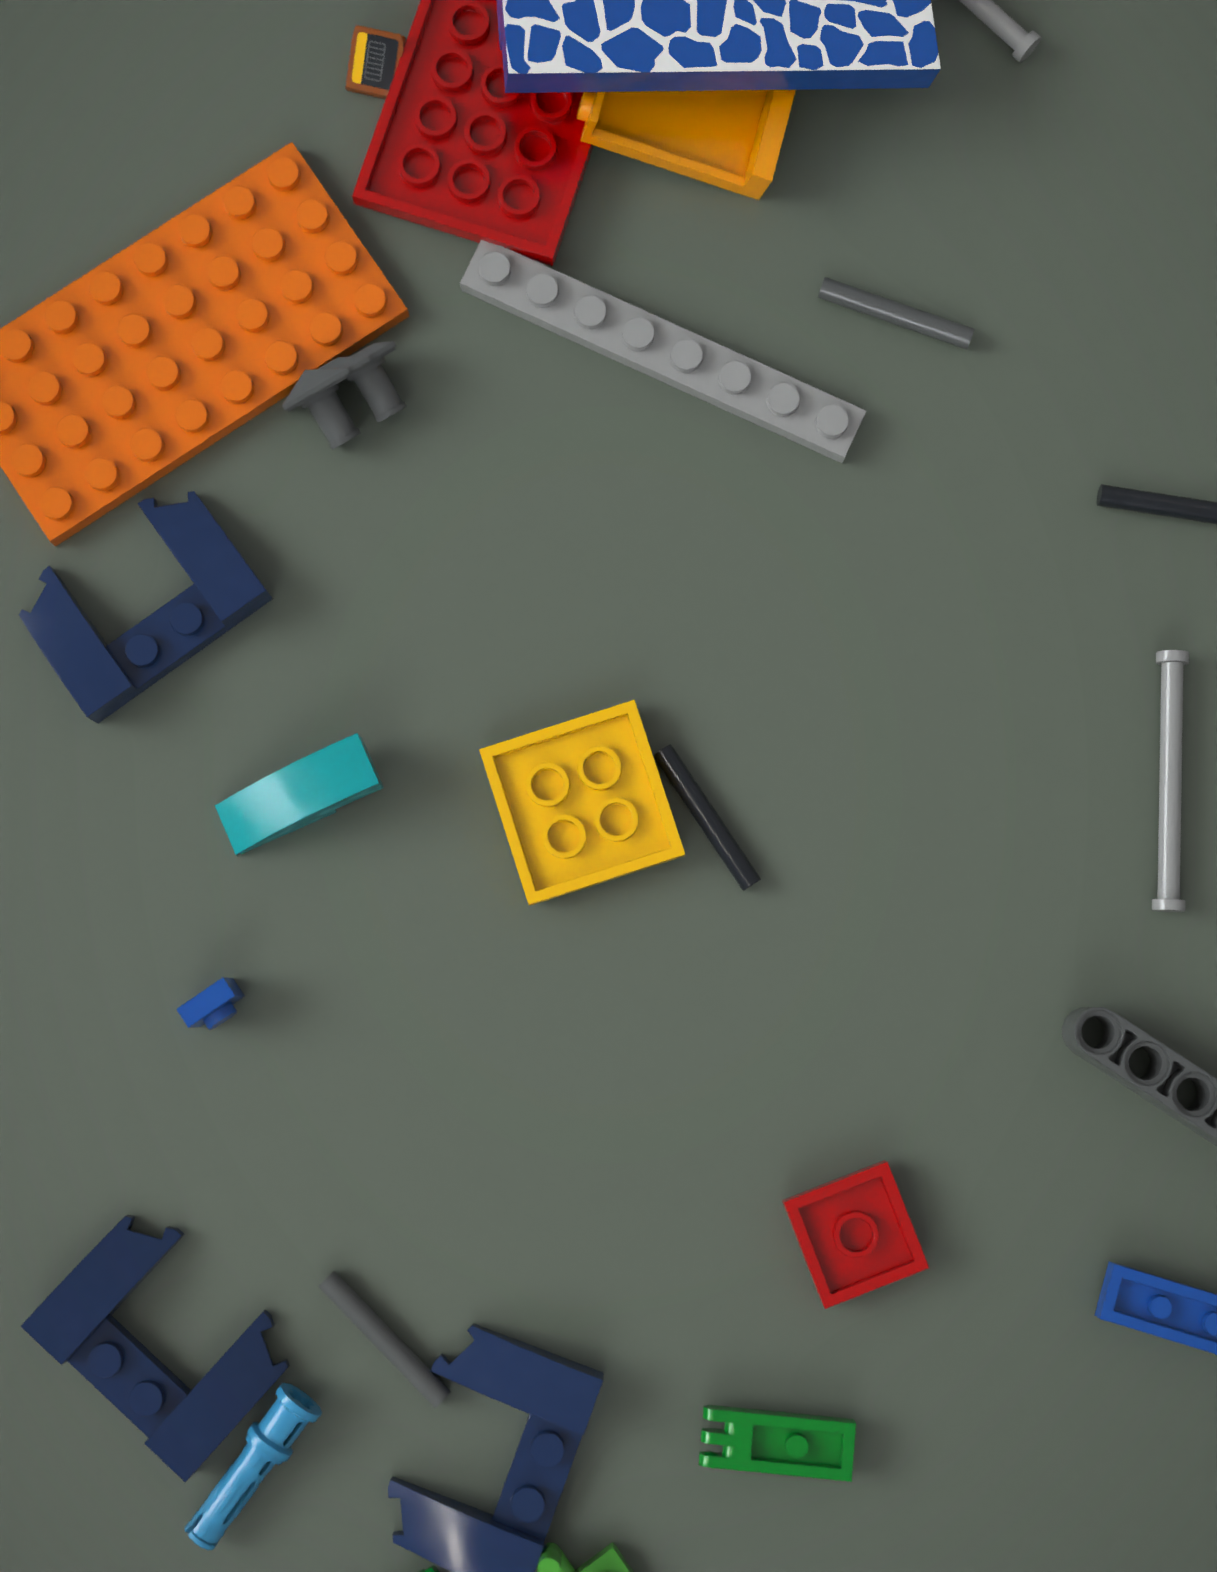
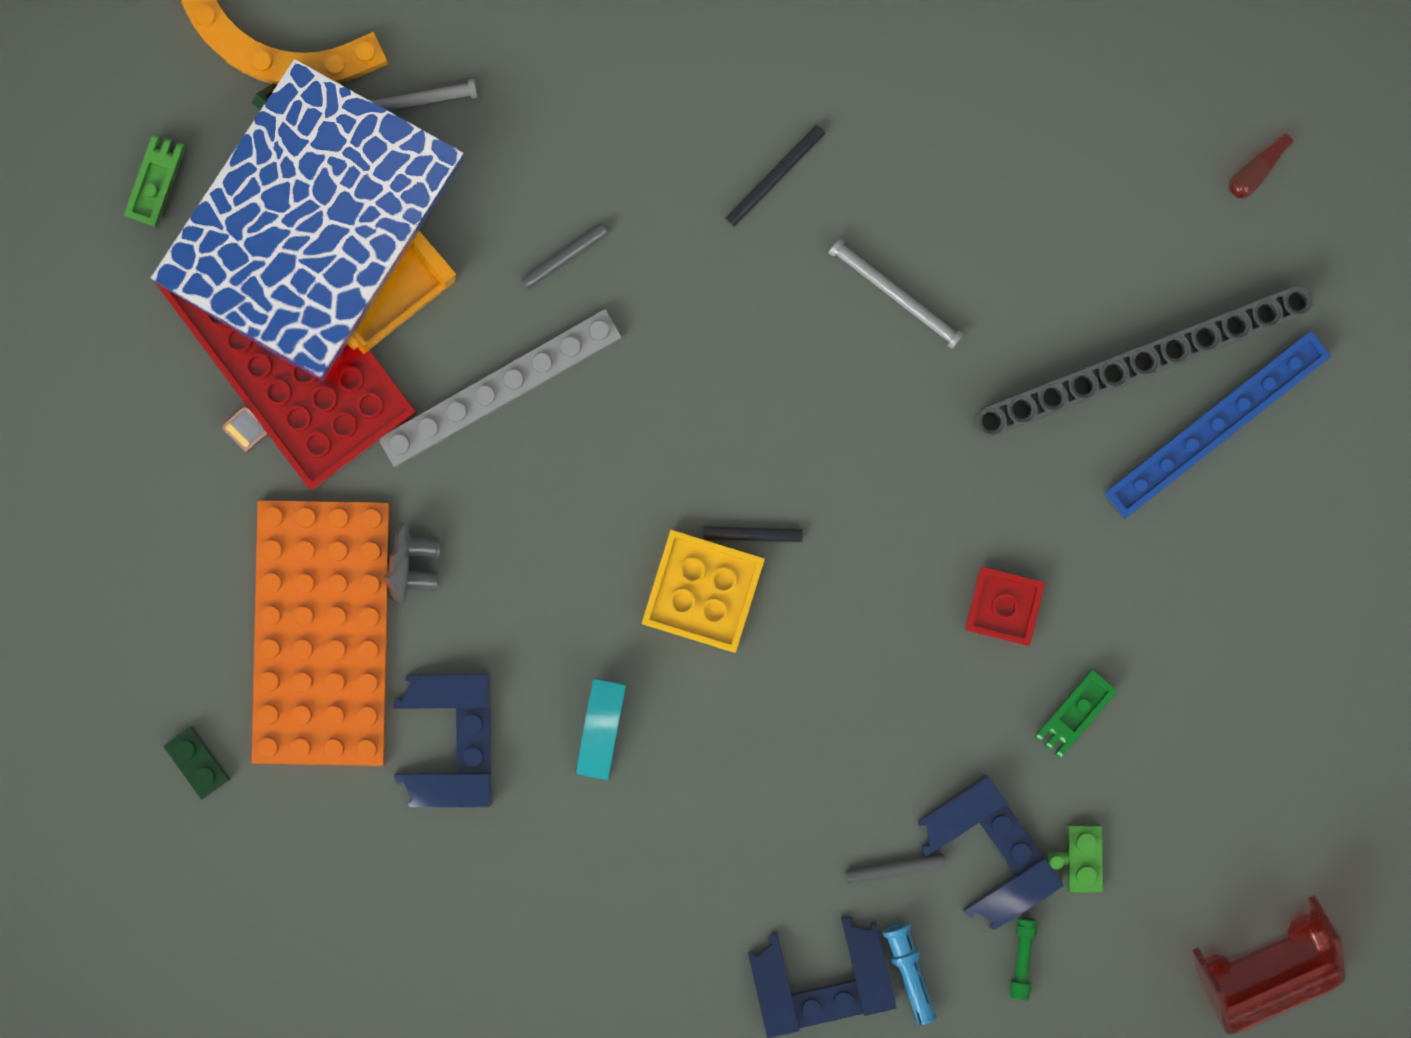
camera: 55 degrees left, 5 degrees up
(212, 1005) = (675, 841): blue plate -> none

